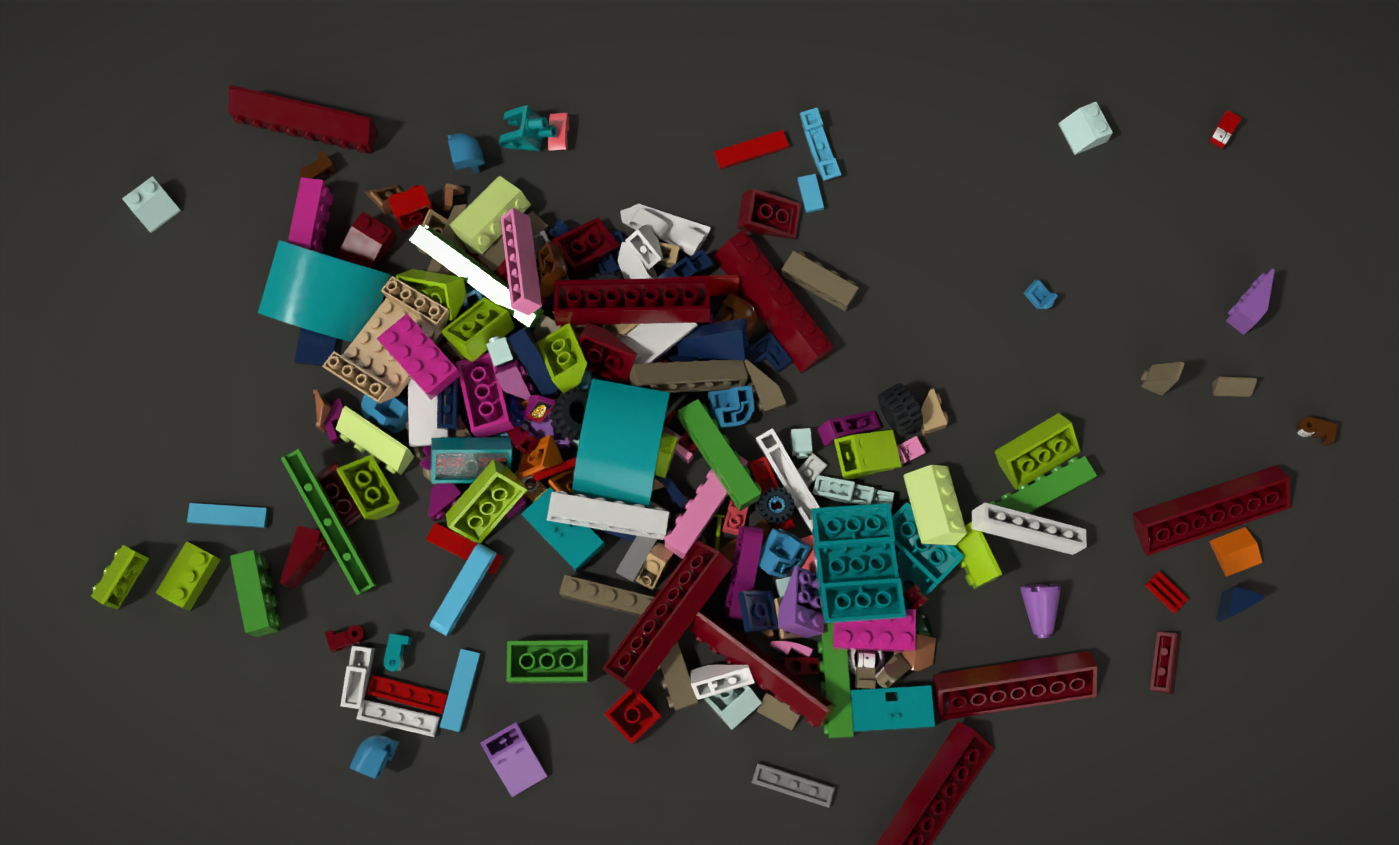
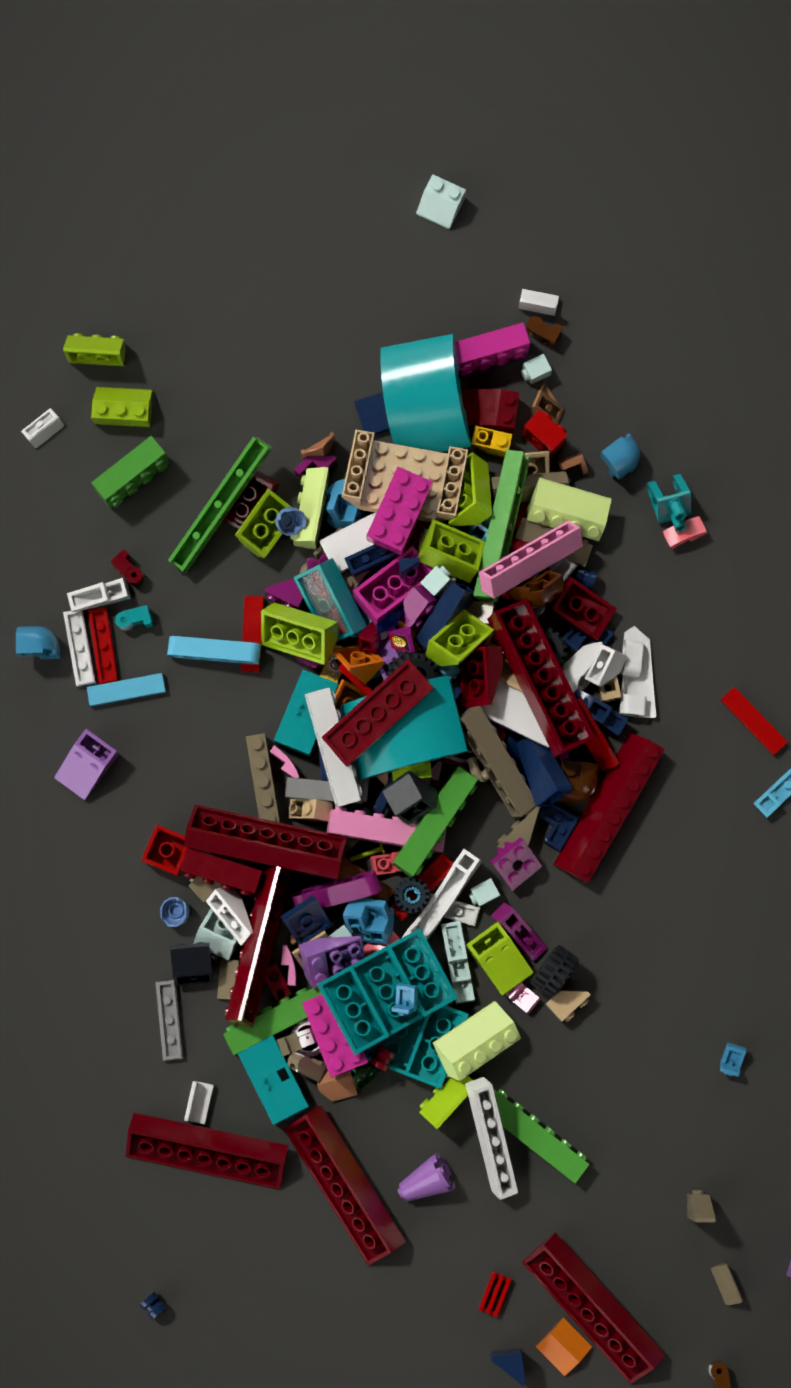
camera: 65 degrees right, 5 degrees up
(168, 661) = (43, 428): none -> white slope
(227, 515) = (190, 413): medium azure tile -> none
(289, 163) = (538, 302): none -> white panel
(301, 119) = (583, 293): dark red slope -> none
(305, 552) = (185, 497): dark red slope -> none
(349, 190) = (536, 369): none -> light aqua brick
(377, 462) = (290, 521): none -> medium blue hair
(395, 255) = (491, 441): none -> yellow slope
(472, 372) = (407, 565): none -> dark blue slope
(548, 661) = (182, 754): bright green brick -> none
(597, 455) = (378, 712): none -> dark red plate
(606, 567) = (288, 768): none -> bright pink slope
(676, 671) = (222, 871): none -> dark red brick
(687, 464) = (410, 797): none -> black slope
(690, 397) = (474, 769): none -> dark tan arm
(693, 734) = (174, 911): none -> medium blue hair
(731, 406) = (487, 813): dark azure brick -> none
(751, 738) = (192, 964): none -> black slope
(768, 214) = (693, 766): dark red slope -> none
(778, 403) = (506, 857): none -> magenta piece
(810, 193) = (735, 796): medium azure tile -> none
(819, 280) = (649, 842): dark tan brick -> none
(873, 548) = (405, 999): none -> dark azure bracket
(882, 789) = (199, 1102): none -> white panel
(1038, 450) = (576, 1118): lime slope -> none
(1165, 662) = (427, 1318): dark red slope -> none

